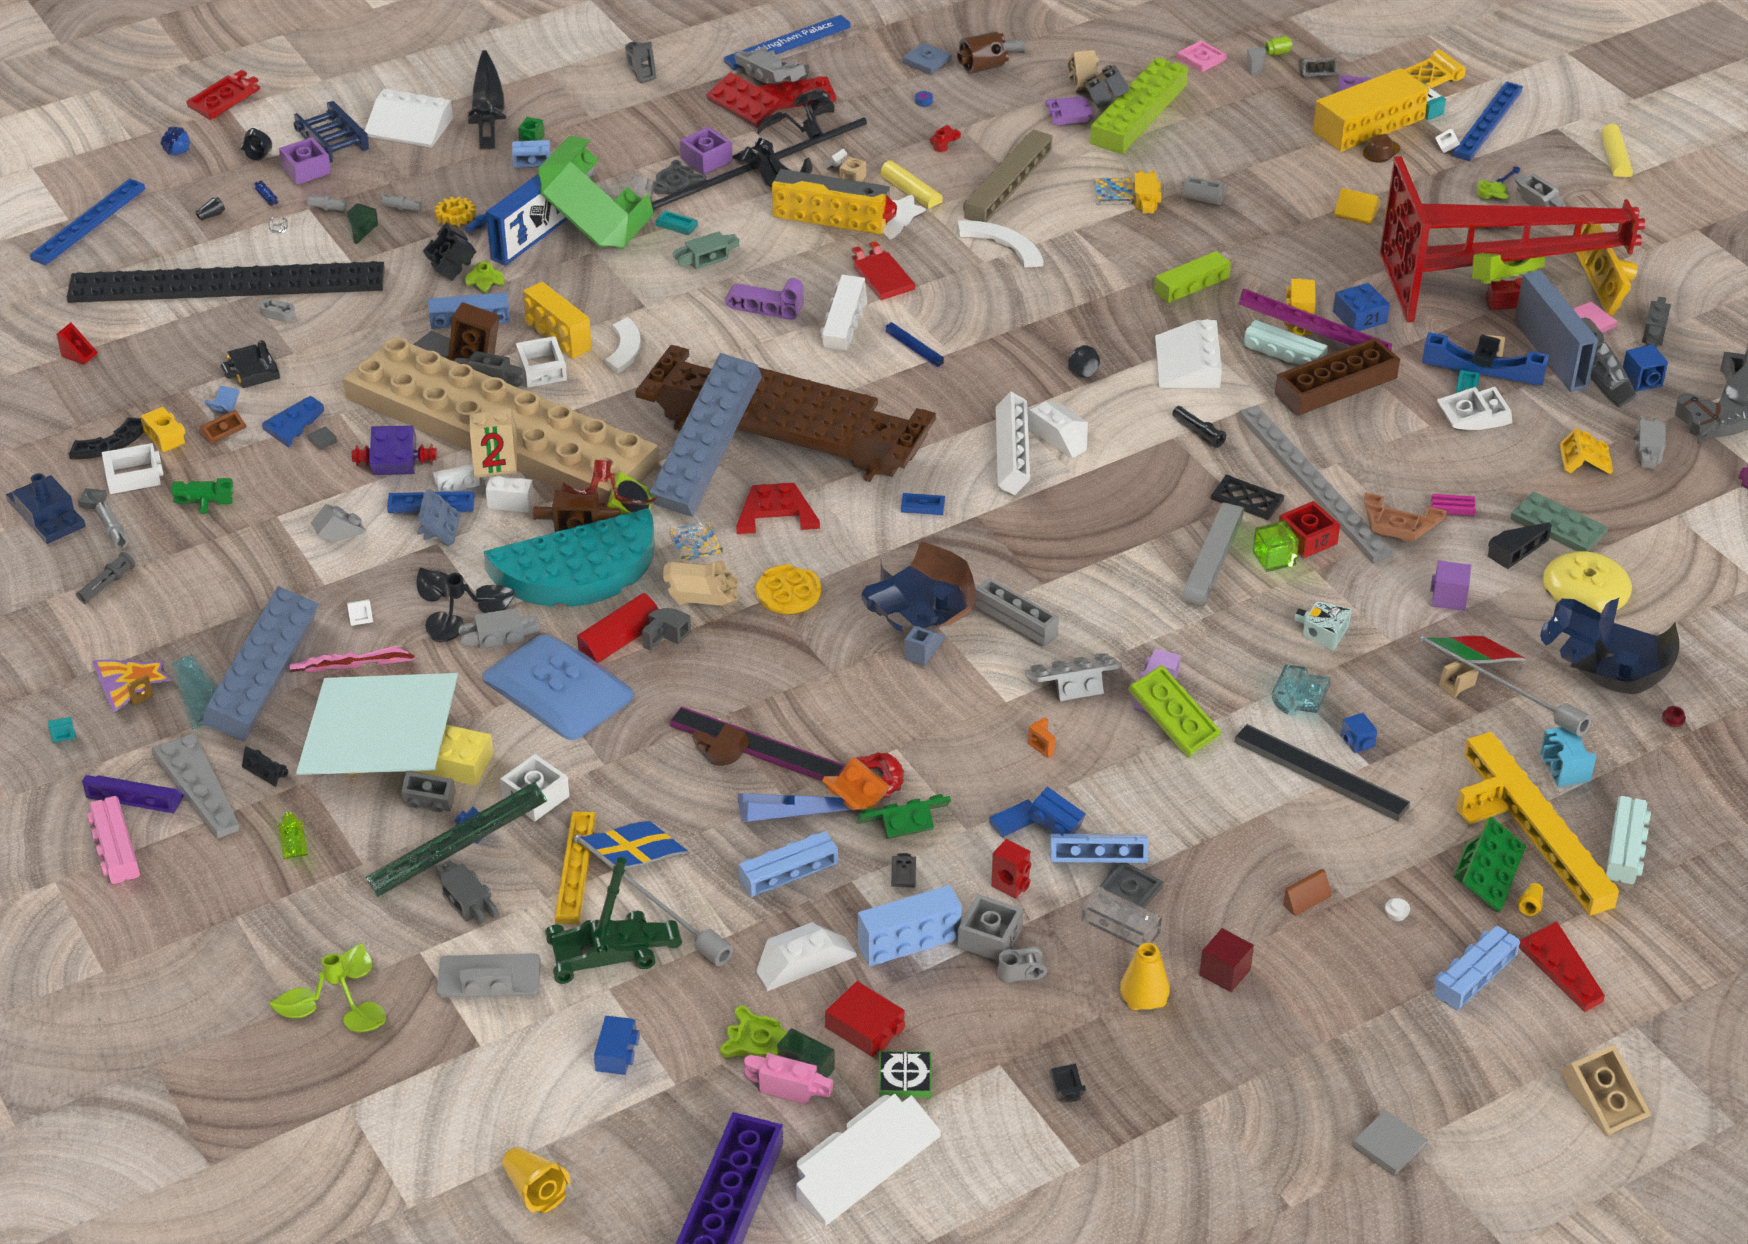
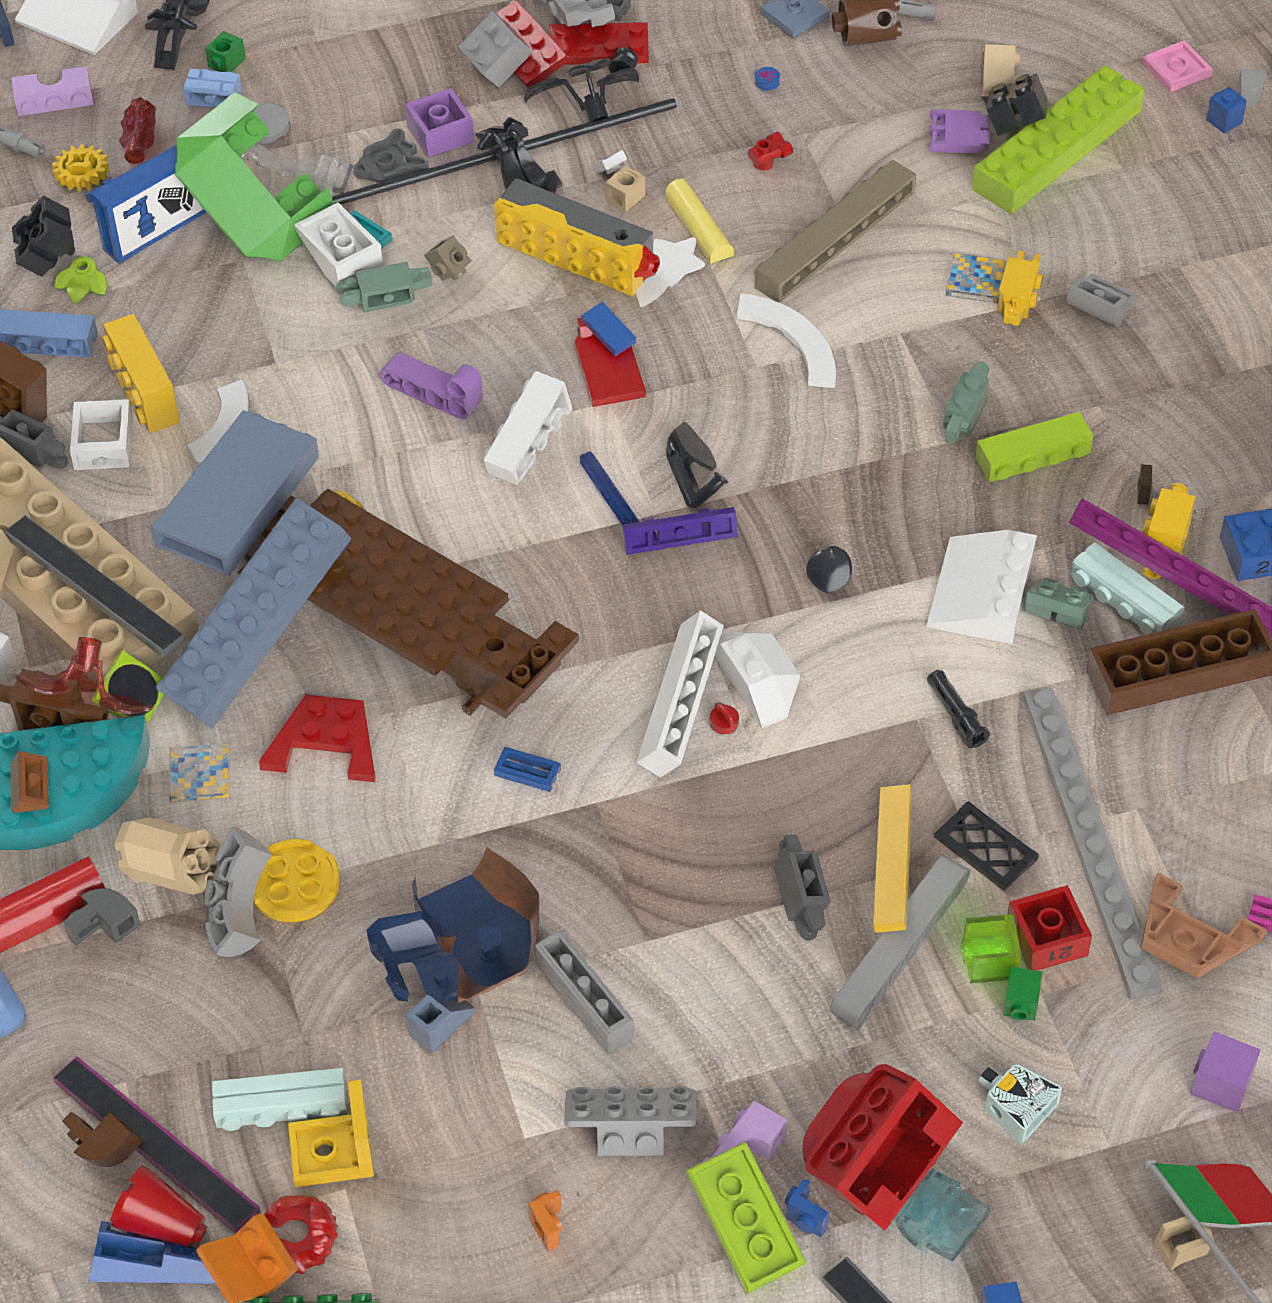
camera: 15 degrees right, 10 degrees up
(403, 175) = (68, 93): none -> lavender arch
(488, 183) = (138, 129): none -> clear red brick
(585, 554) = (29, 782): none -> dark orange slope
(586, 437) = (94, 586): none -> black tile
(666, 228) = (339, 243): none -> white slope
(666, 366) = (235, 492): none -> sand blue brick
(729, 102) = (495, 49): none -> light grey brick
(746, 227) = (448, 259): none -> dark tan brick
(750, 597) = (232, 894): none -> light grey brick
(779, 776) = (157, 1211): none -> red cone
(833, 704) = (279, 1098): none -> light aqua brick
(877, 250) = (608, 328): none -> blue tile
(894, 719) = (347, 1137): none -> yellow bracket
(956, 318) = (682, 450): none -> black piece
(973, 356) = (680, 530): none -> dark purple hinge
(1045, 455) = (724, 719): none -> red tile
(1137, 533) = (802, 887): none -> dark grey hinge
(1138, 258) = (966, 402): none -> sand green hinge
(1191, 509) = (893, 859): none -> yellow tile
(1211, 704) = (804, 1213): none -> blue bracket
(1245, 74) = (1226, 110): none -> blue brick
(1246, 649) = (877, 1141): none -> red brick
(1253, 359) = (1069, 603): none -> sand green plate
(1273, 286) = (1144, 484): none -> dark brown tile
(1304, 568) = (1022, 993): none -> green brick

